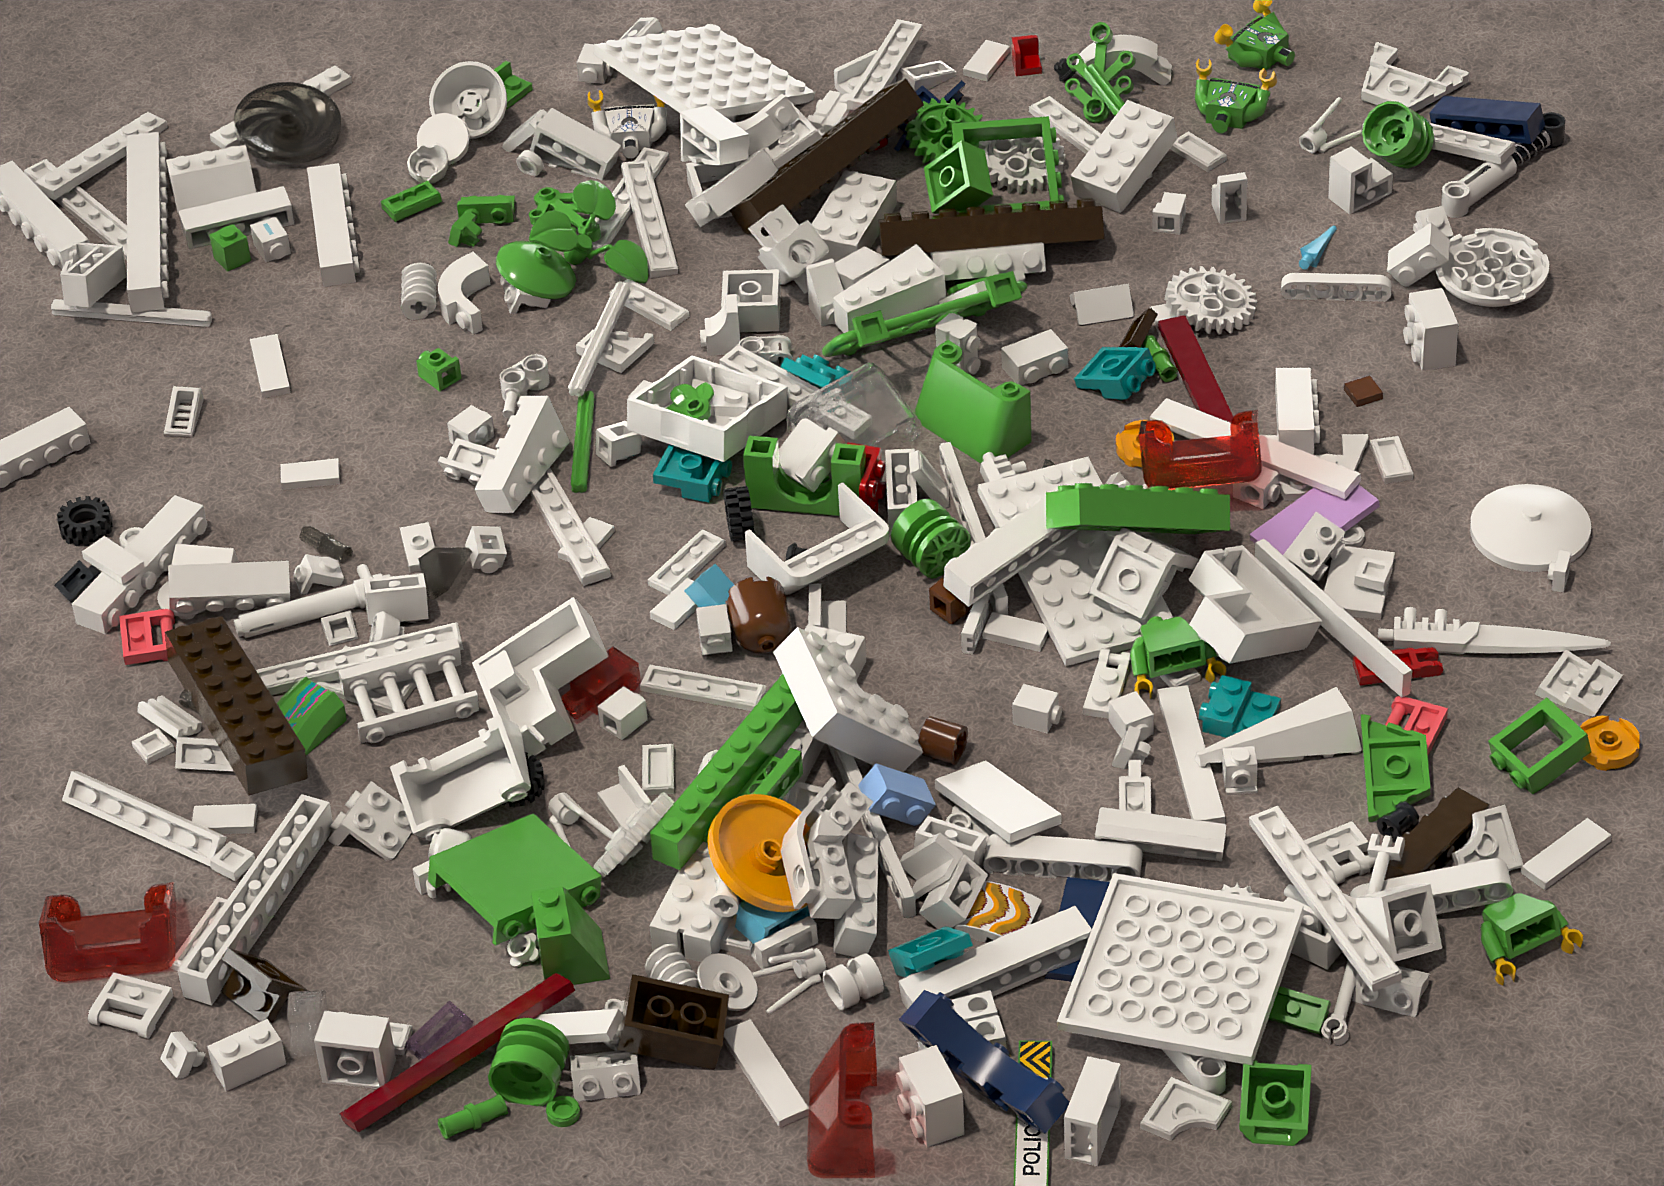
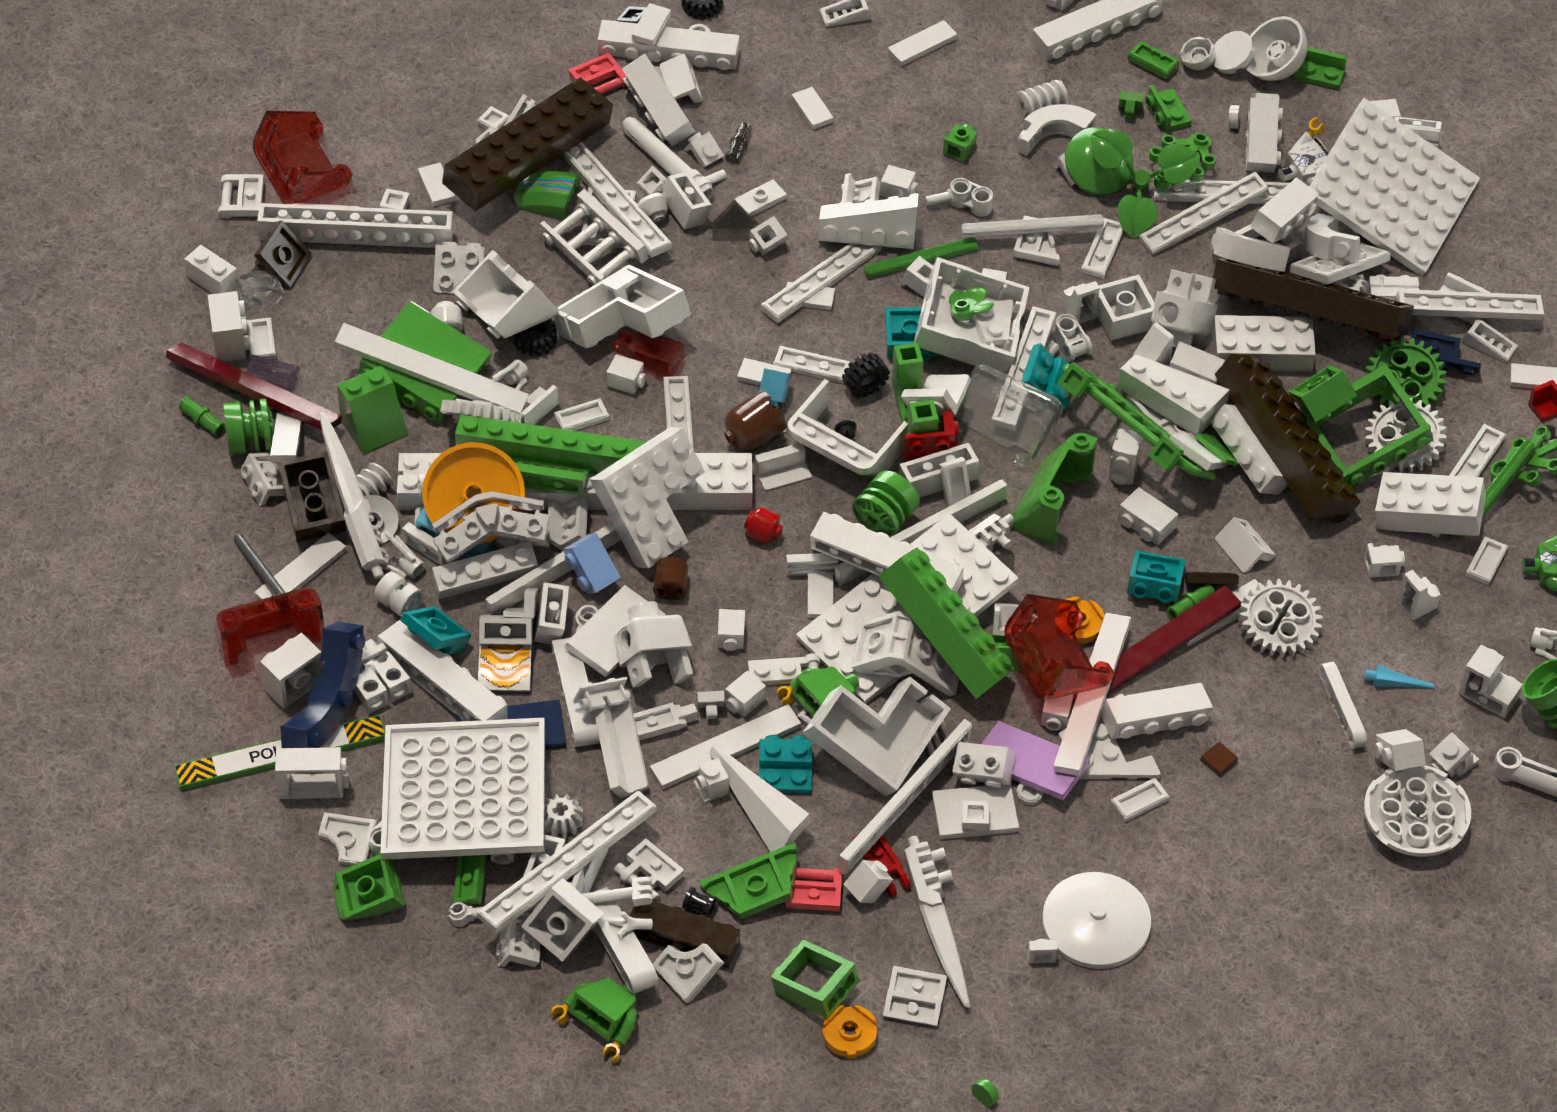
camera: 65 degrees right, 10 degrees up
(143, 818) = (416, 137): white plate -> none
(181, 1055) = (204, 237): white tile -> none
(538, 866) = (429, 368): none -> white tile
(563, 1111) = (226, 466): bright green tile -> none
(714, 629) = (724, 401): white brick -> none
(720, 978) = (357, 509): none -> white piece
(746, 1104) = (258, 565): none -> dark grey bar
(903, 648) = (763, 525): none -> red head
(1042, 764) = (653, 641): none -> white piece
(1099, 819) = (592, 695): none -> white hinge
(1426, 867) = (630, 923): none -> white bar
(1428, 674) = (868, 881): none -> white brick
(1431, 329) = (1303, 782): white brick -> none
(1566, 854) = (711, 1029): white tile -> none

